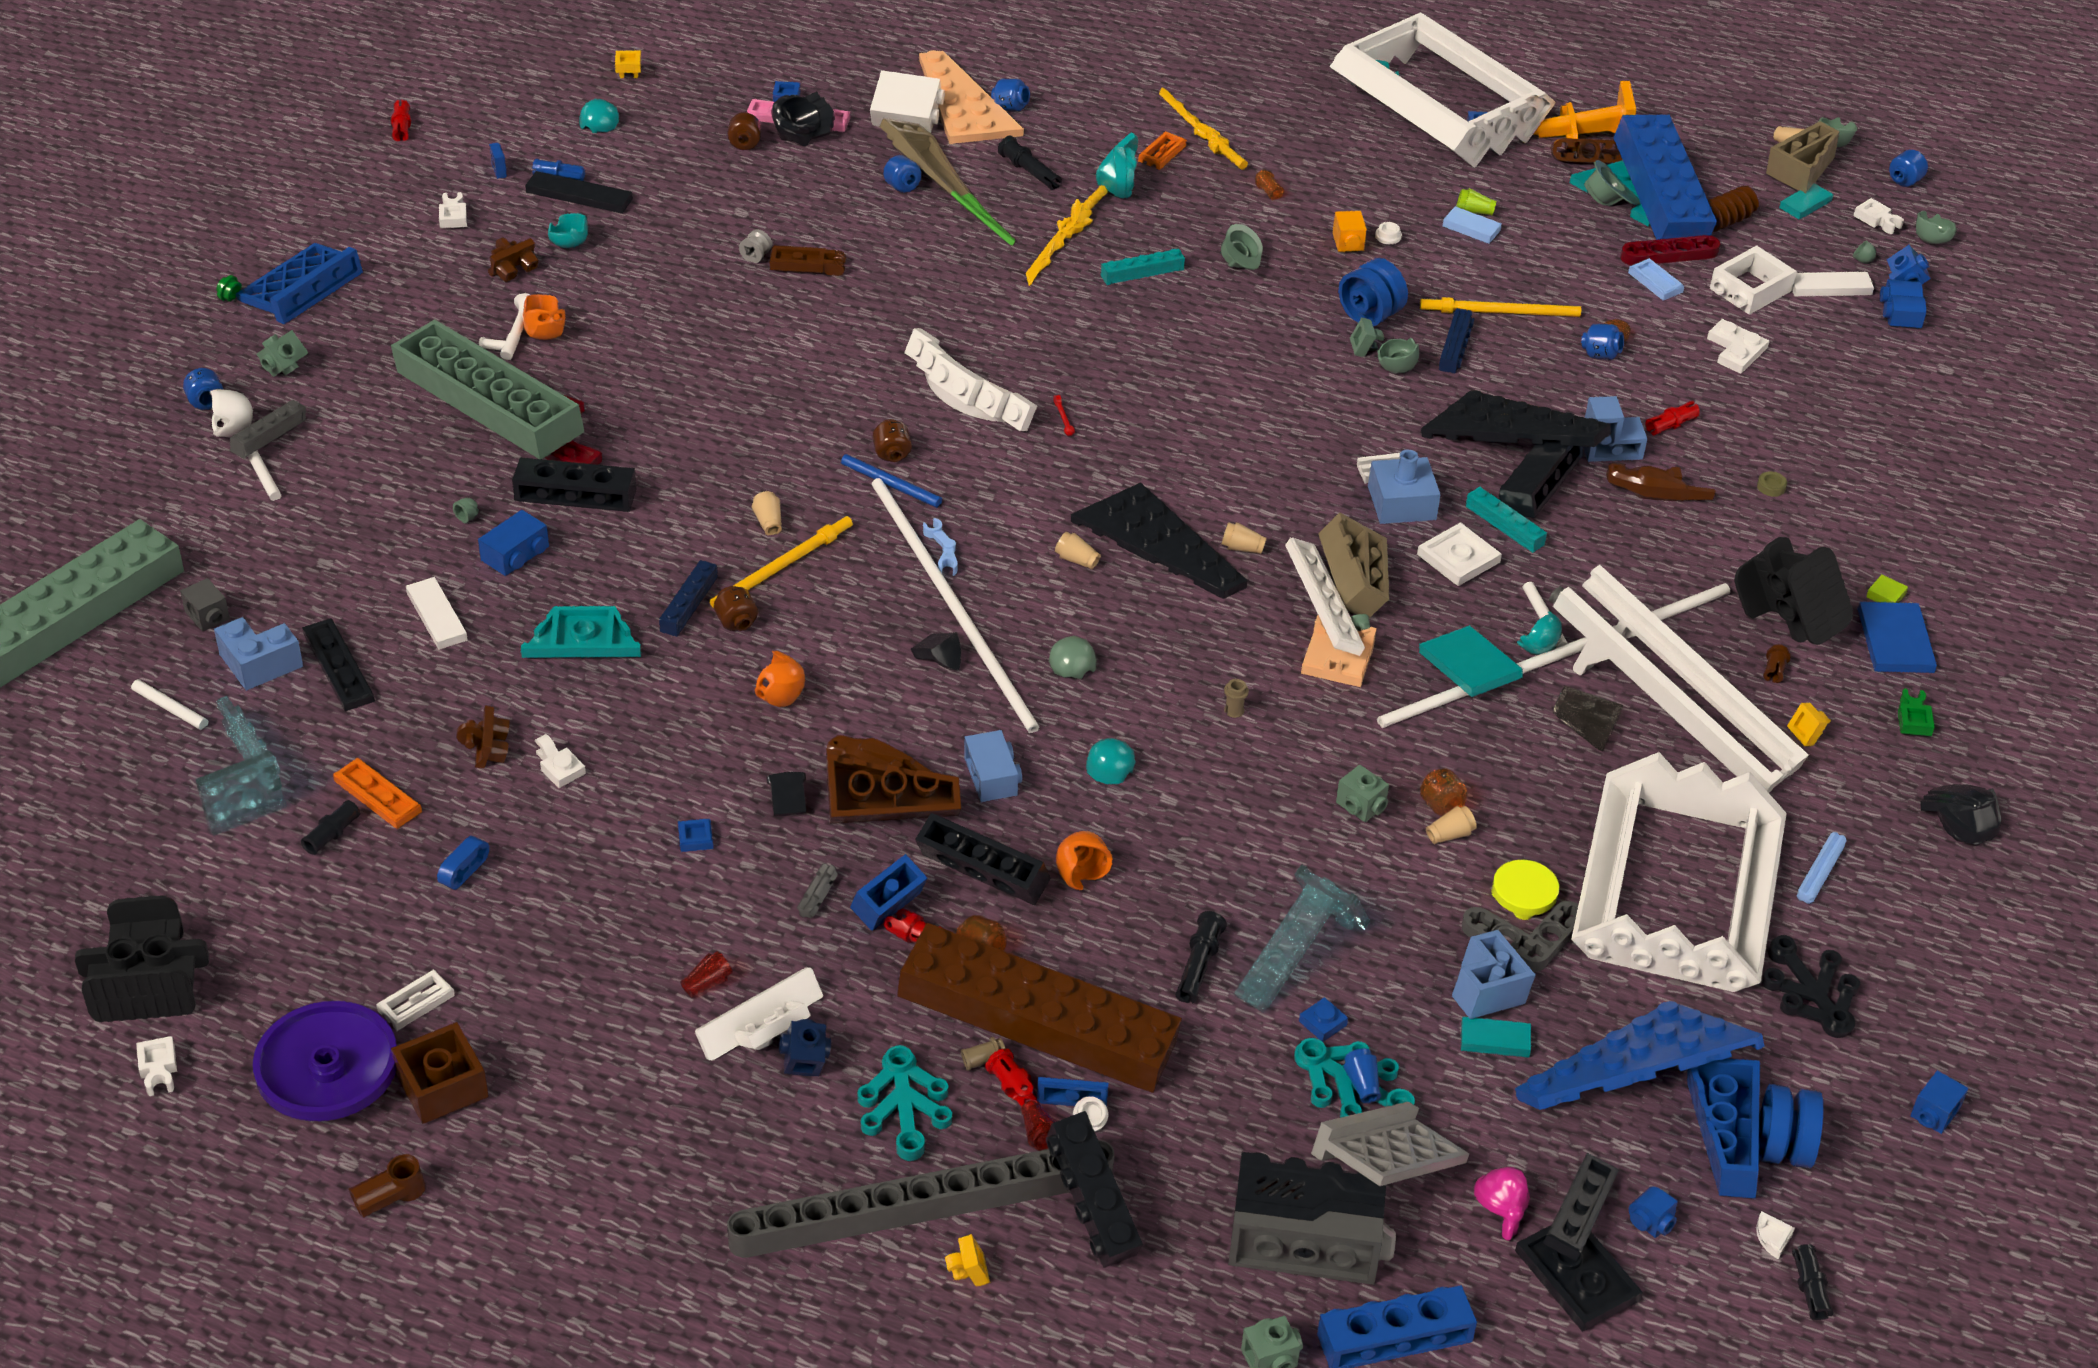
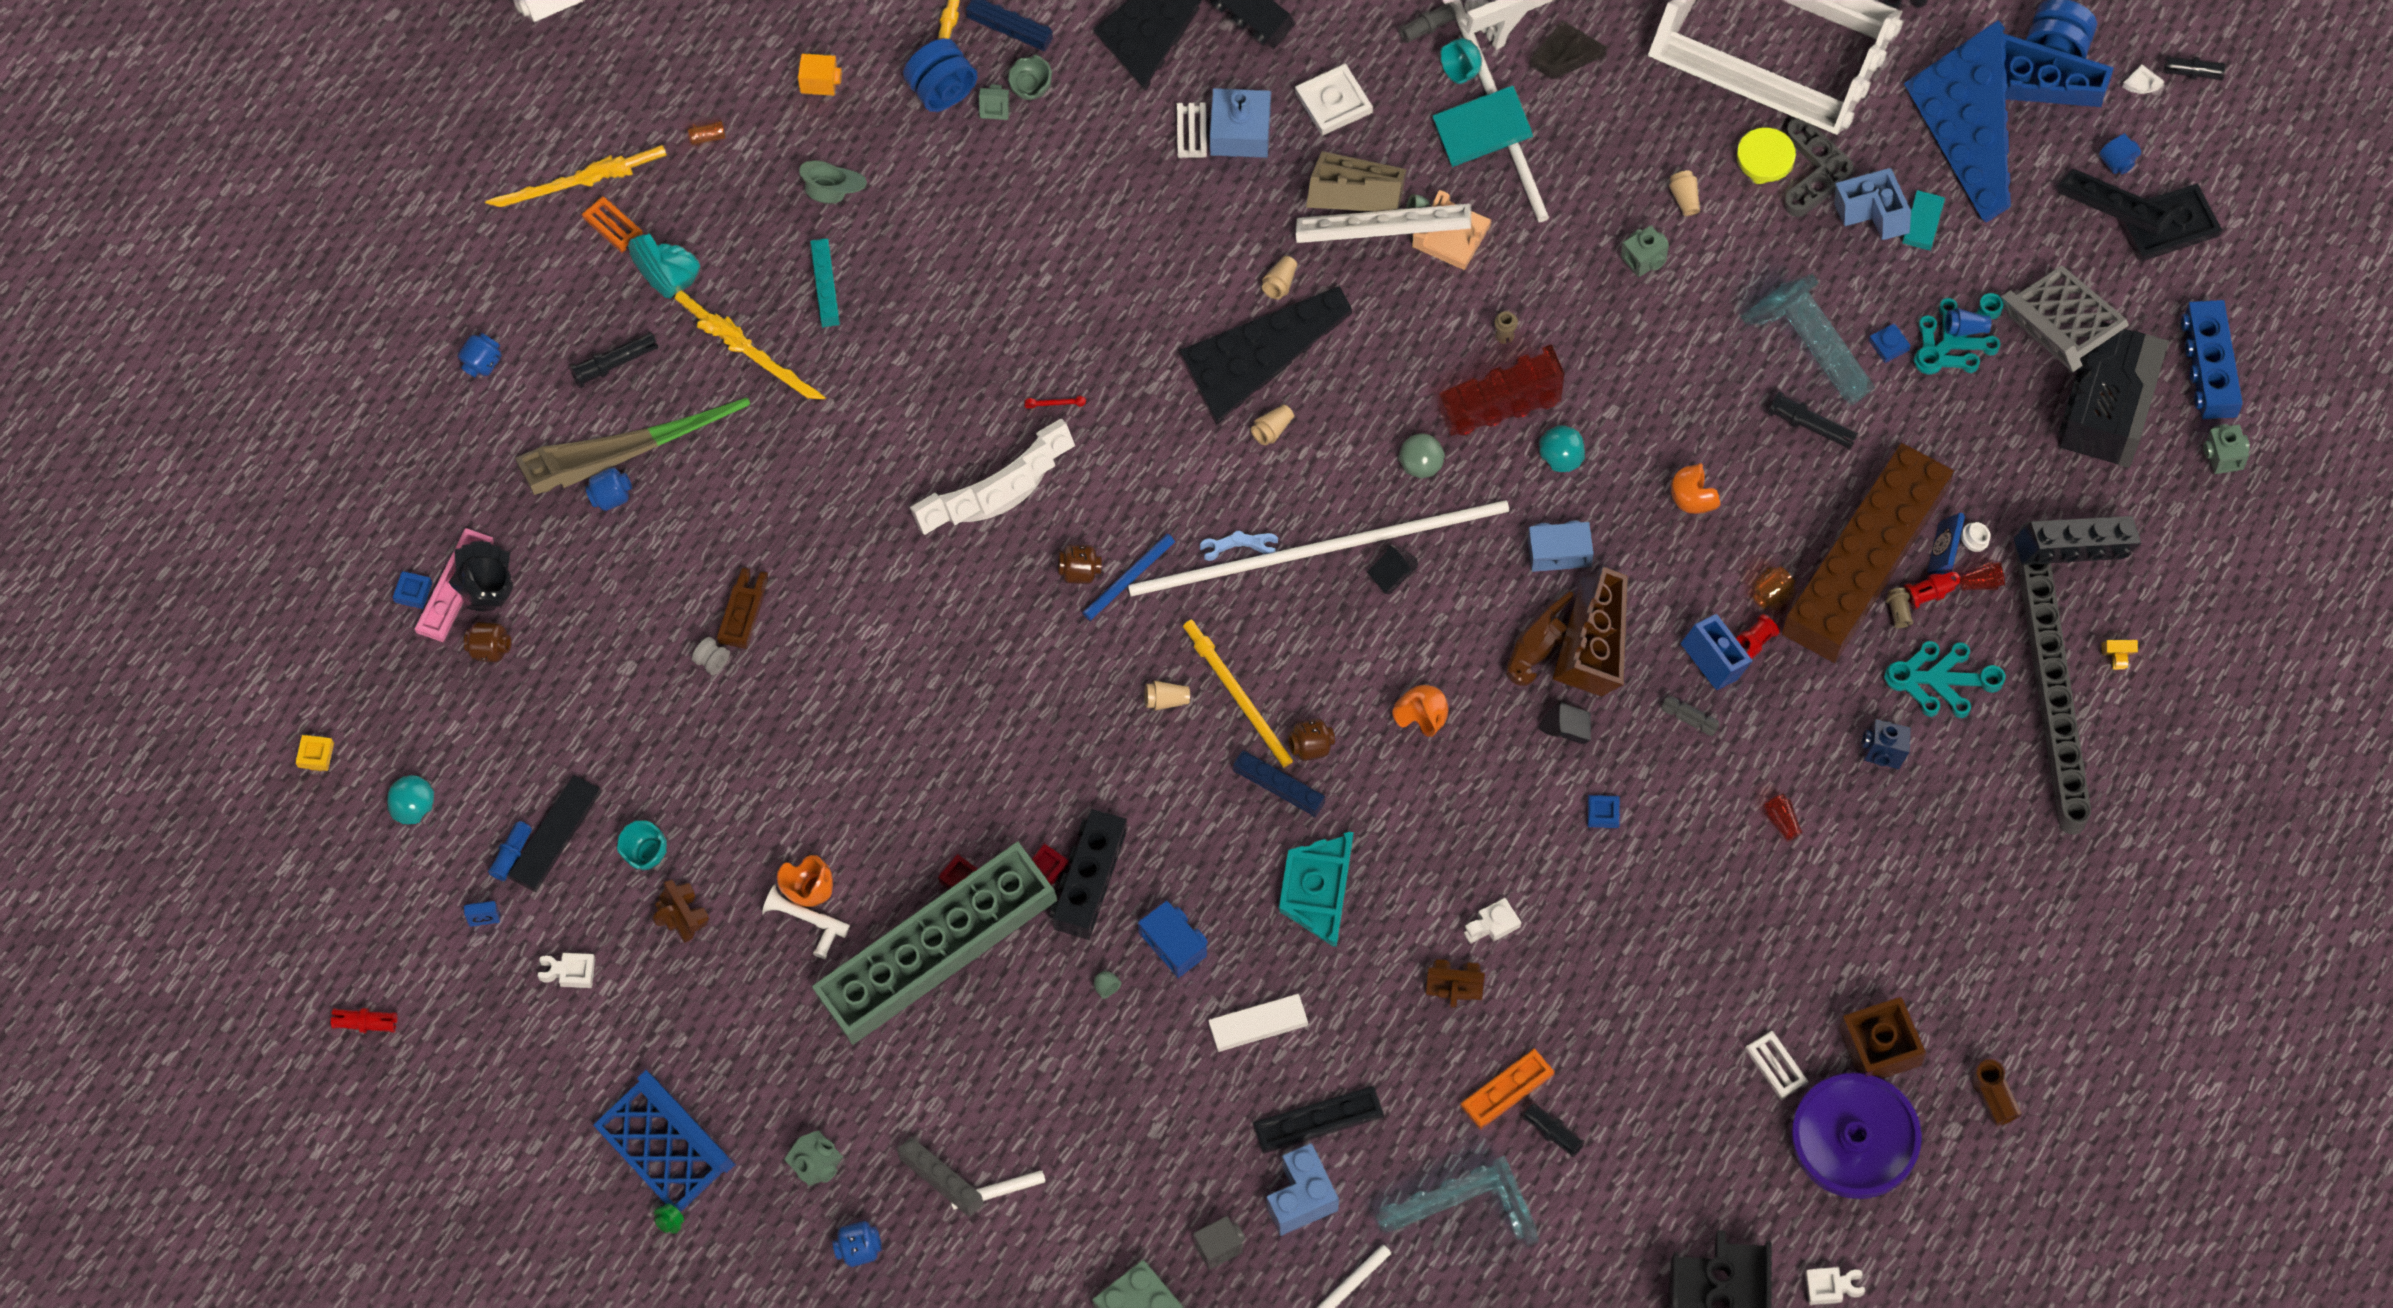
camera: 75 degrees left, 20 degrees up
(232, 409) = (910, 1206): white helmet -> none
(463, 862) = (1618, 1012): blue beam -> none
(761, 1017) = (1846, 773): white bracket -> none
(907, 99) = (477, 462): white brick -> none
(967, 109) = (482, 407): light nougat wing -> none
(983, 859) = (1685, 569): black brick -> none
(1157, 704) = (1503, 393): none -> clear red wedge
(1388, 233) = (818, 41): white plate -> none
(1443, 791) = (1649, 187): clear orange head -> none
(1505, 1194) = (2093, 254): dark pink hat -> none
(1506, 519) = (1289, 48): teal piece -> none
(1539, 605) = (1411, 53): white bar -> none

